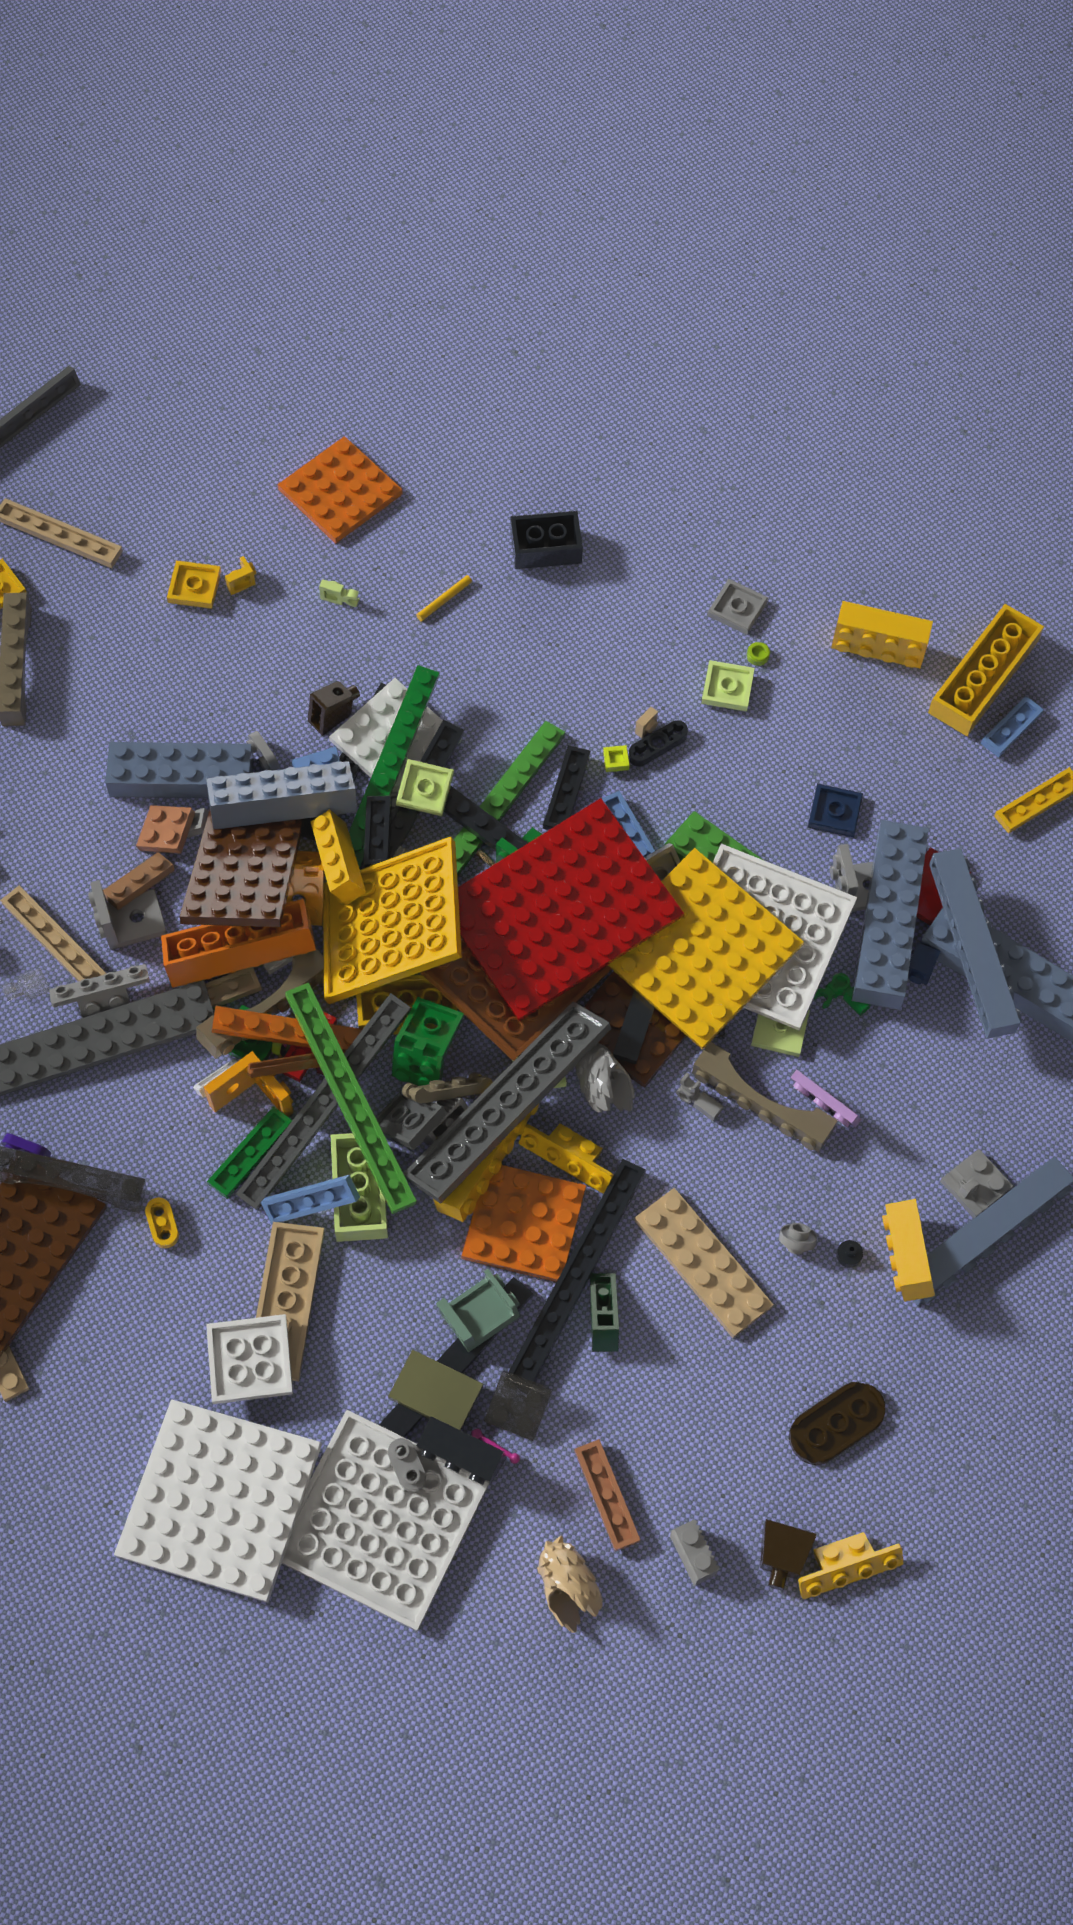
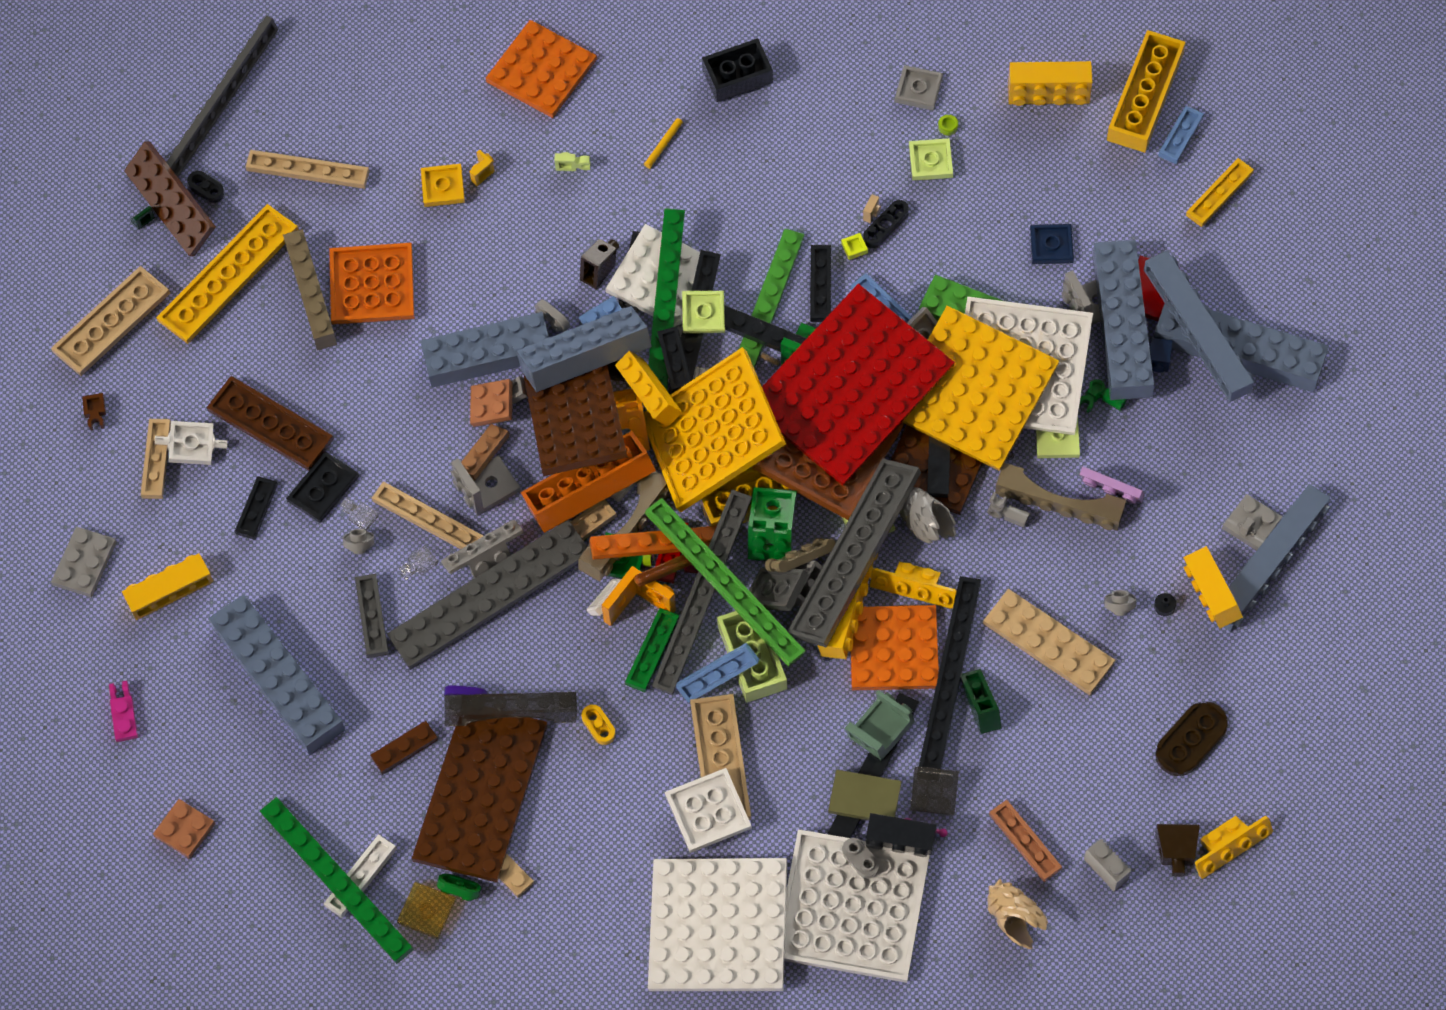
camera: 10 degrees left, 0 degrees up
(83, 669) = (371, 283): none -> orange plate

